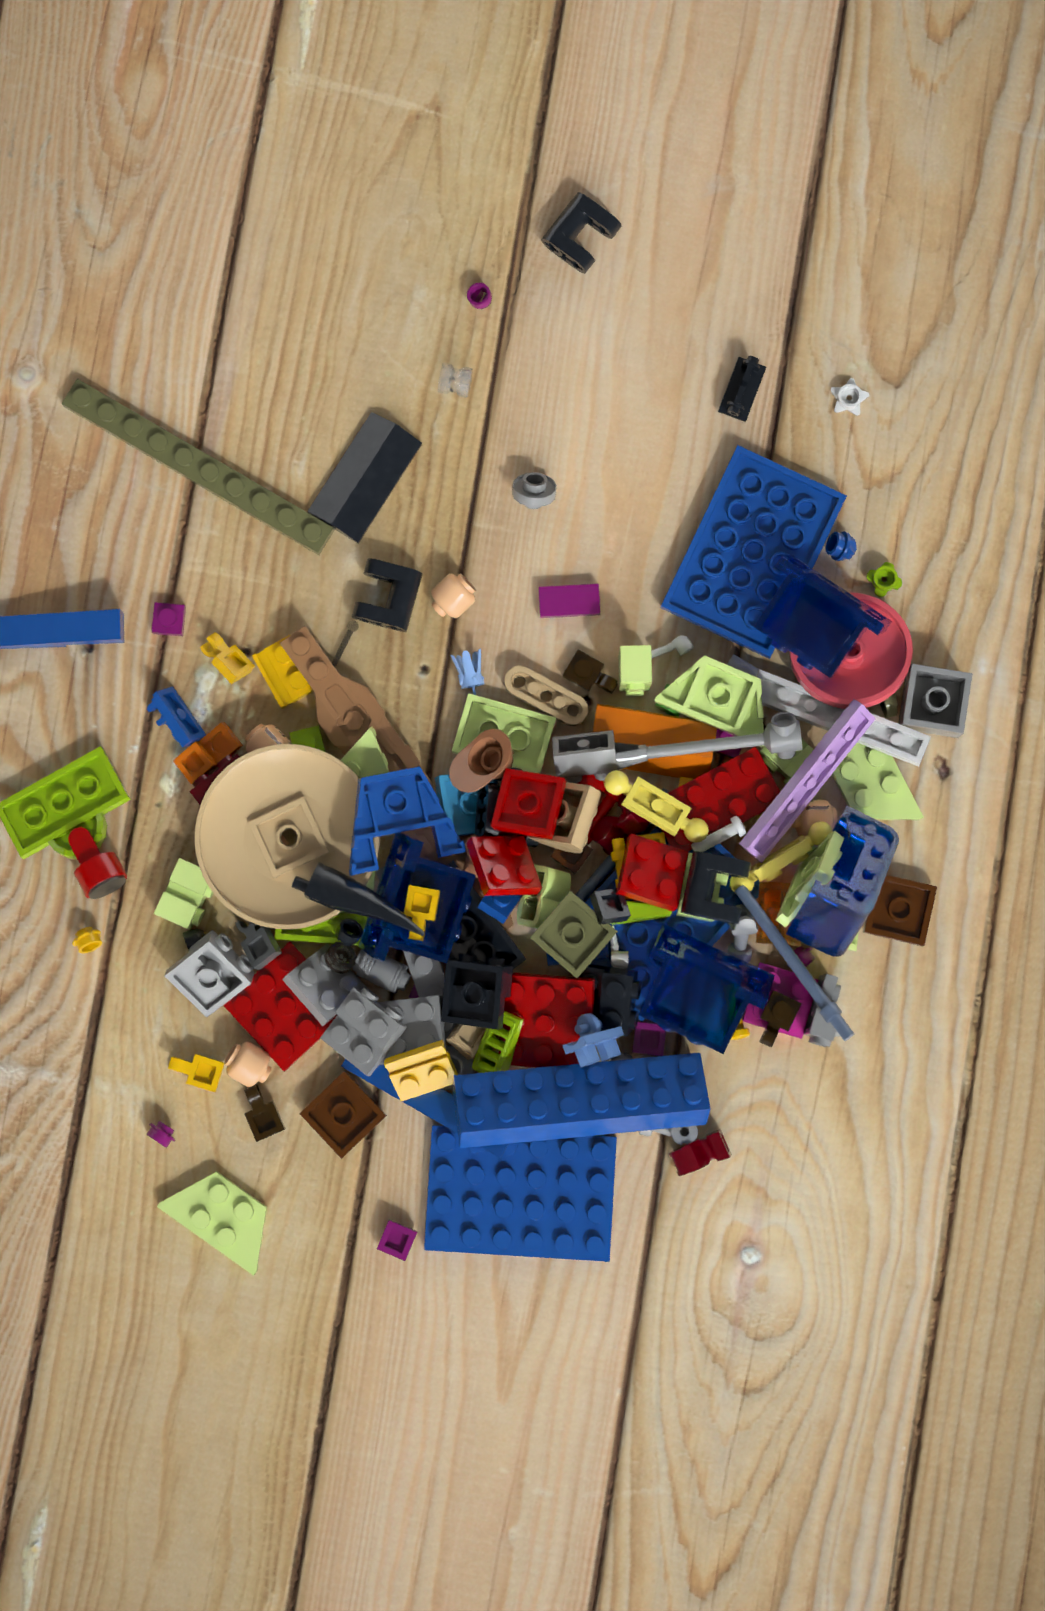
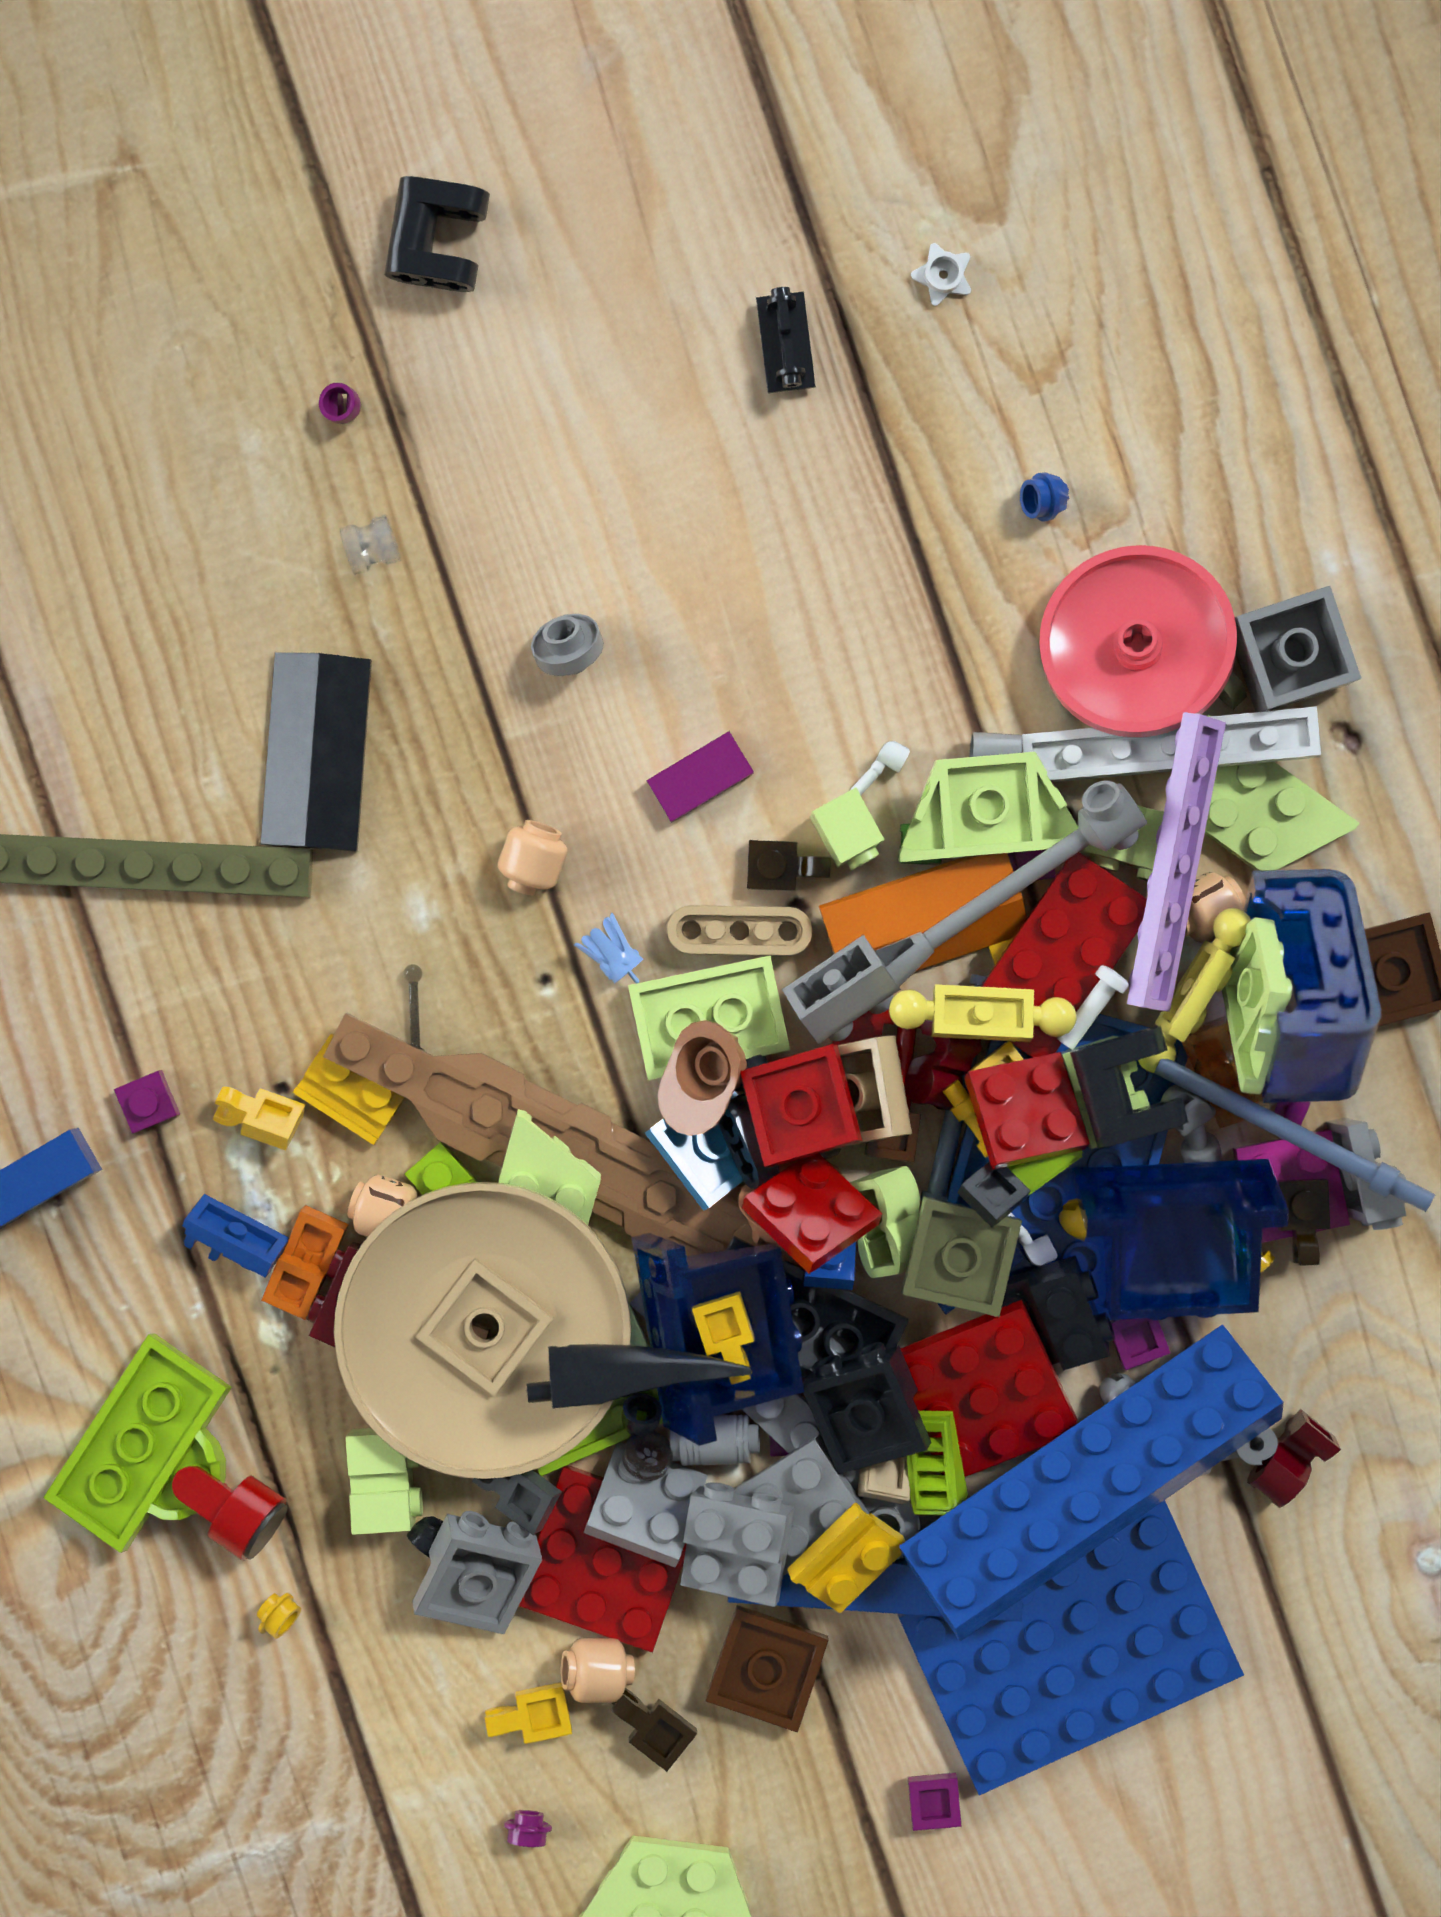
camera: 35 degrees left, 5 degrees up
(394, 805) = (612, 1209): blue wing -> none
(400, 600) = (459, 899): black connector -> none
(591, 1037) = (1064, 1386): medium blue hips -> none
(644, 951) = (1072, 1220): none -> yellow hinge
(748, 526) = (925, 569): blue plate -> none
(816, 618) = (1071, 622): clear blue windscreen -> none
(886, 570) = (1129, 498): lime plate -> none

